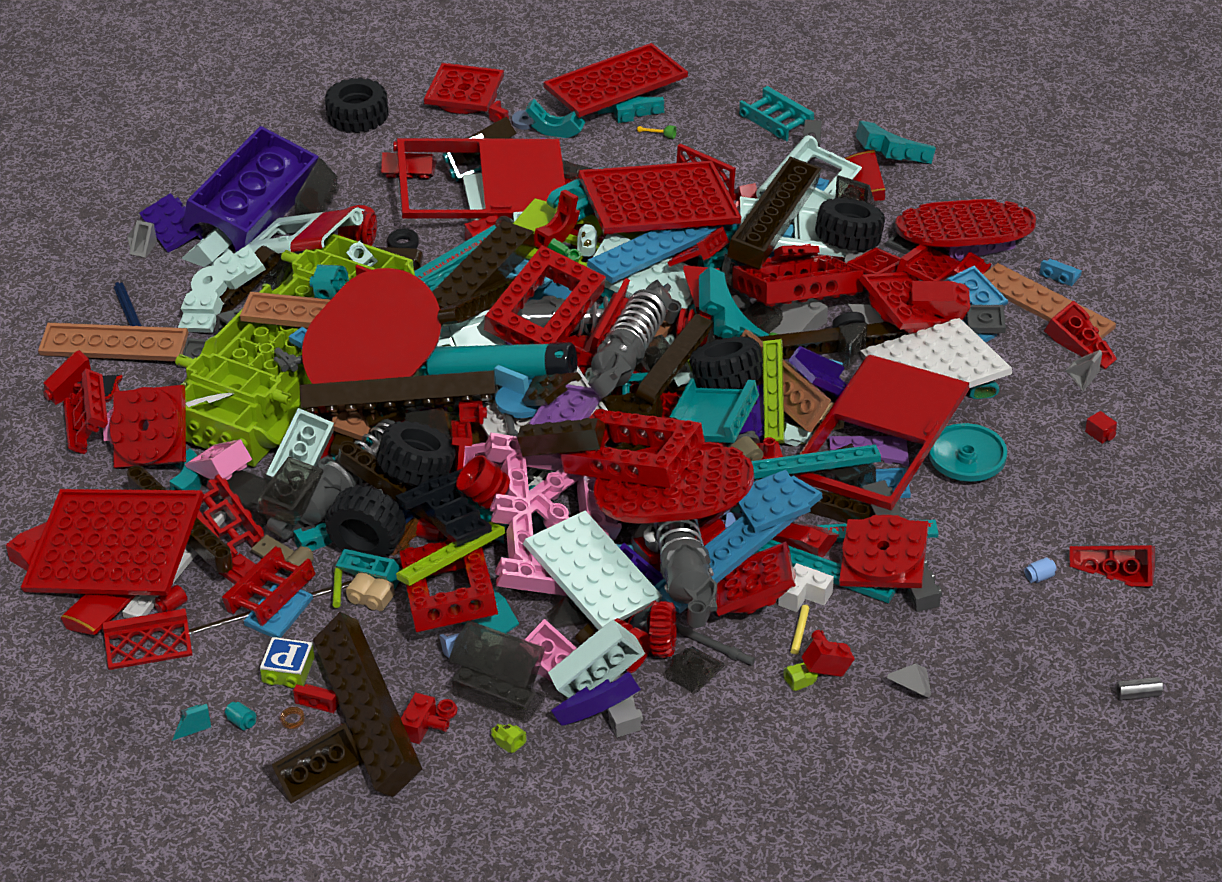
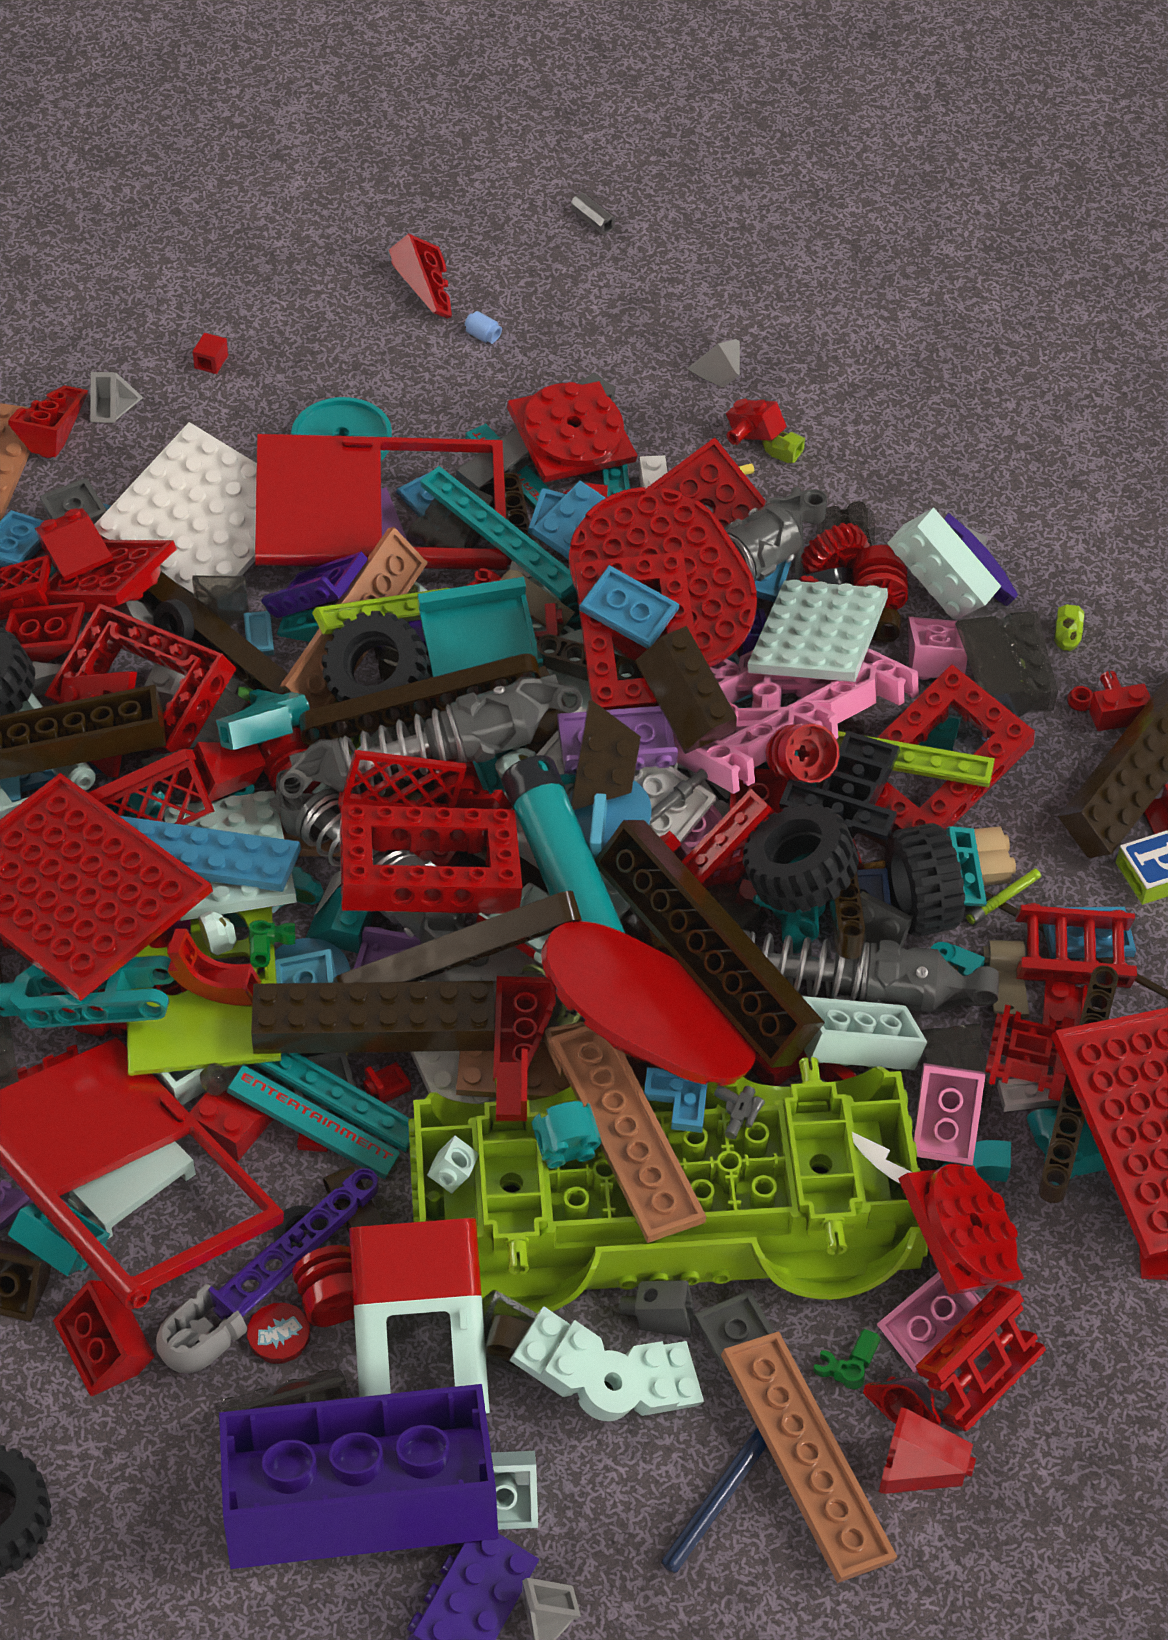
camera: 125 degrees left, 10 degrees up
(141, 380) = (850, 1372): none -> green bar
(290, 491) = (957, 963): clear smoke slope -> none
(382, 193) = (190, 1345): none -> piece
(643, 429) = (629, 607): none -> dark azure tile

